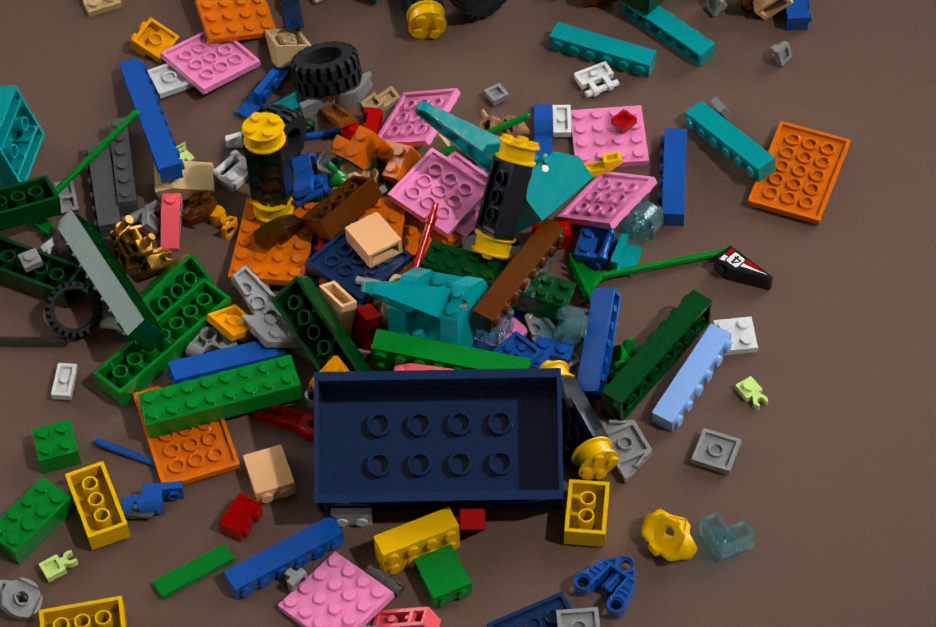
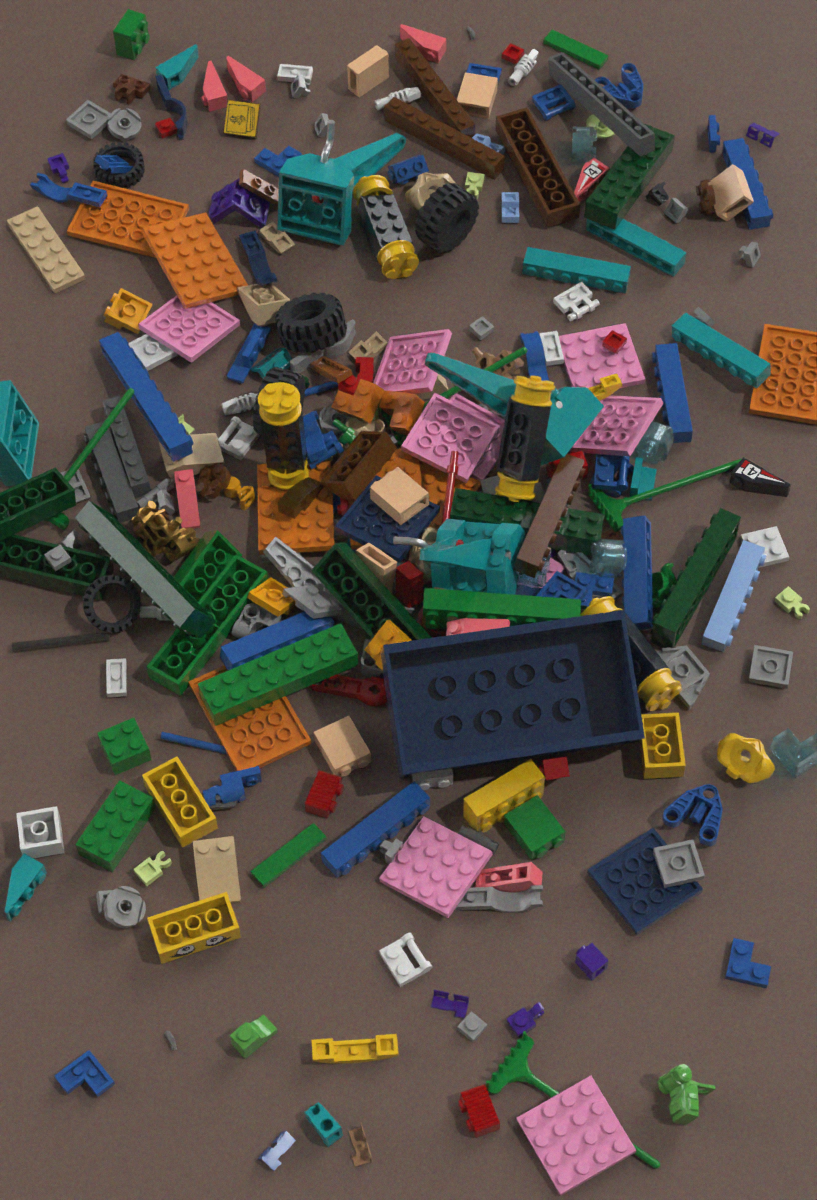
camera: 10 degrees left, 5 degrees up
(120, 573) = (217, 868): none -> tan slope

